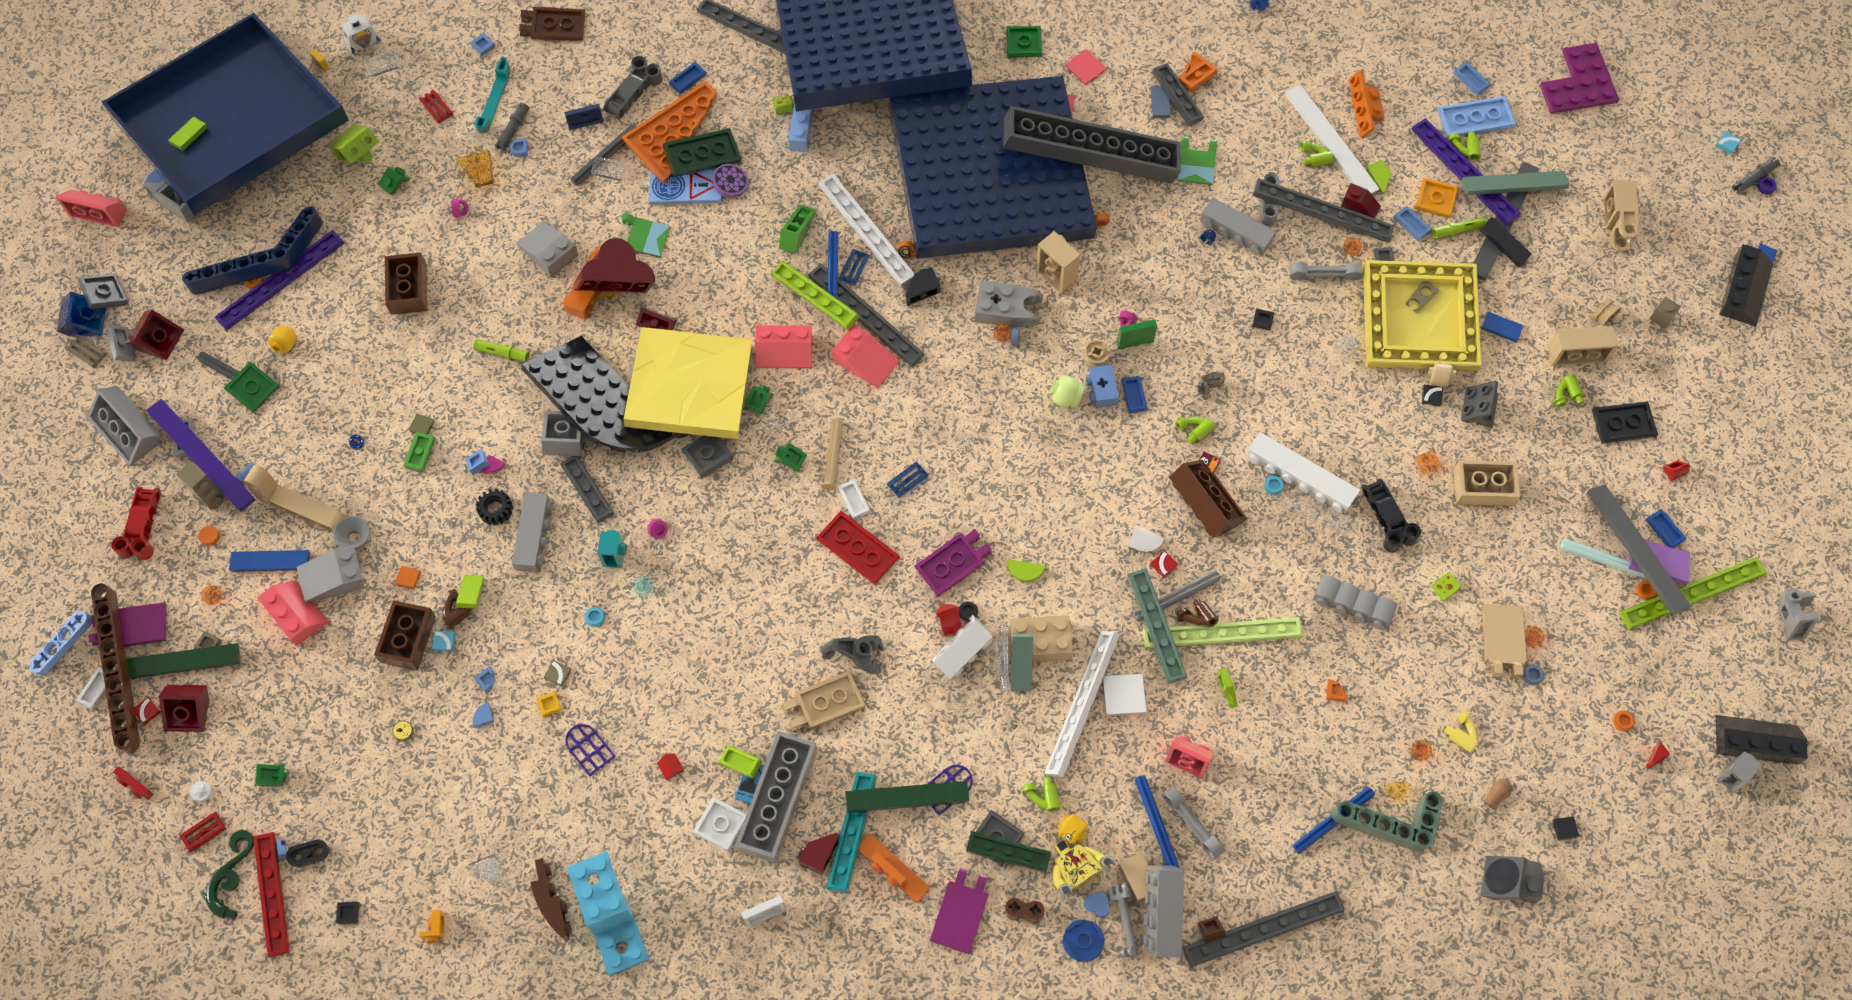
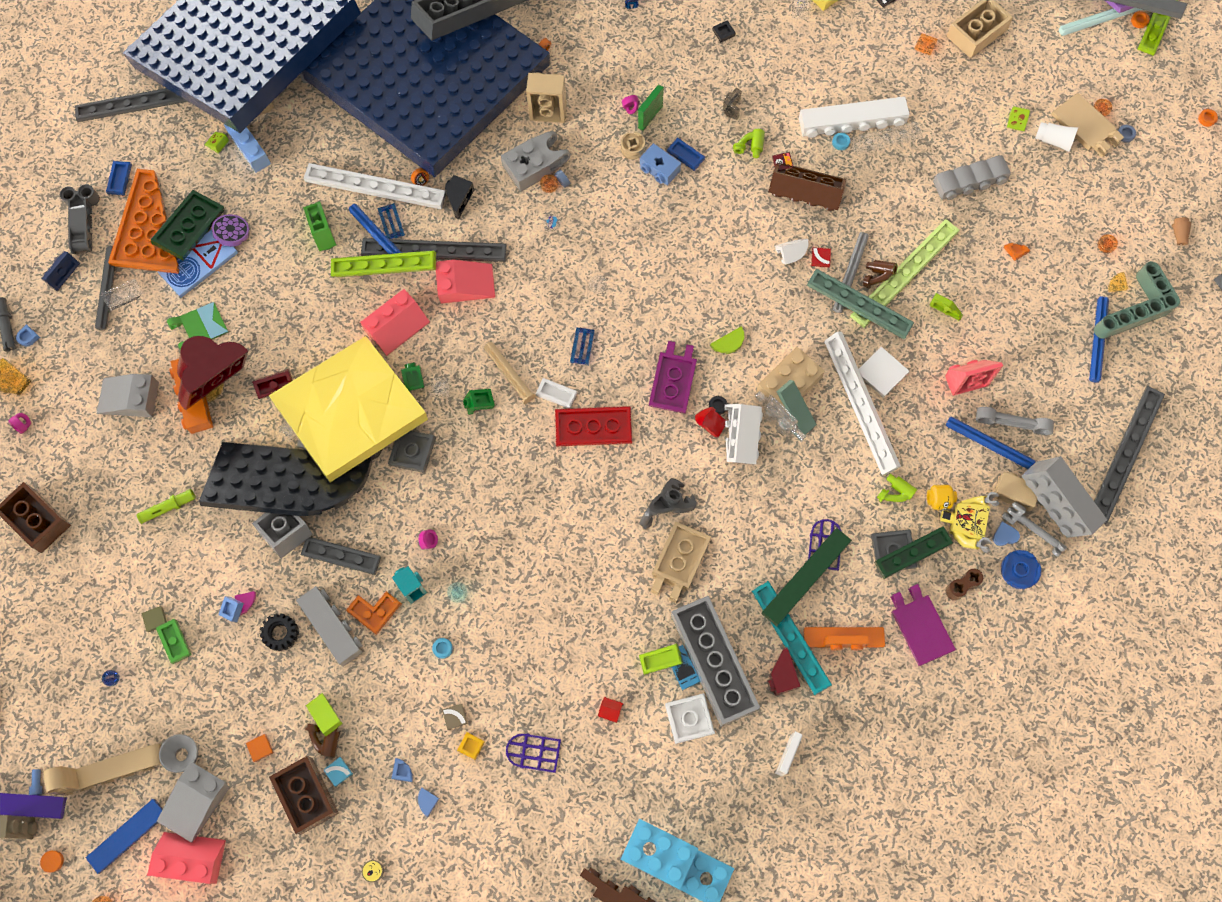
camera: 40 degrees left, 5 degrees up
(572, 554) = (374, 617): none -> orange tile
(974, 365) = (551, 223): none -> clear tile
(1067, 391) = (639, 188): yellowish green piece -> none
(1211, 929) = (1096, 484): reddish brown tile -> none
(1390, 516) = (939, 100): black piece -> none
(1464, 740) = (1130, 212): light yellow plant -> none
(1465, 626) = (1057, 135): none -> white plant

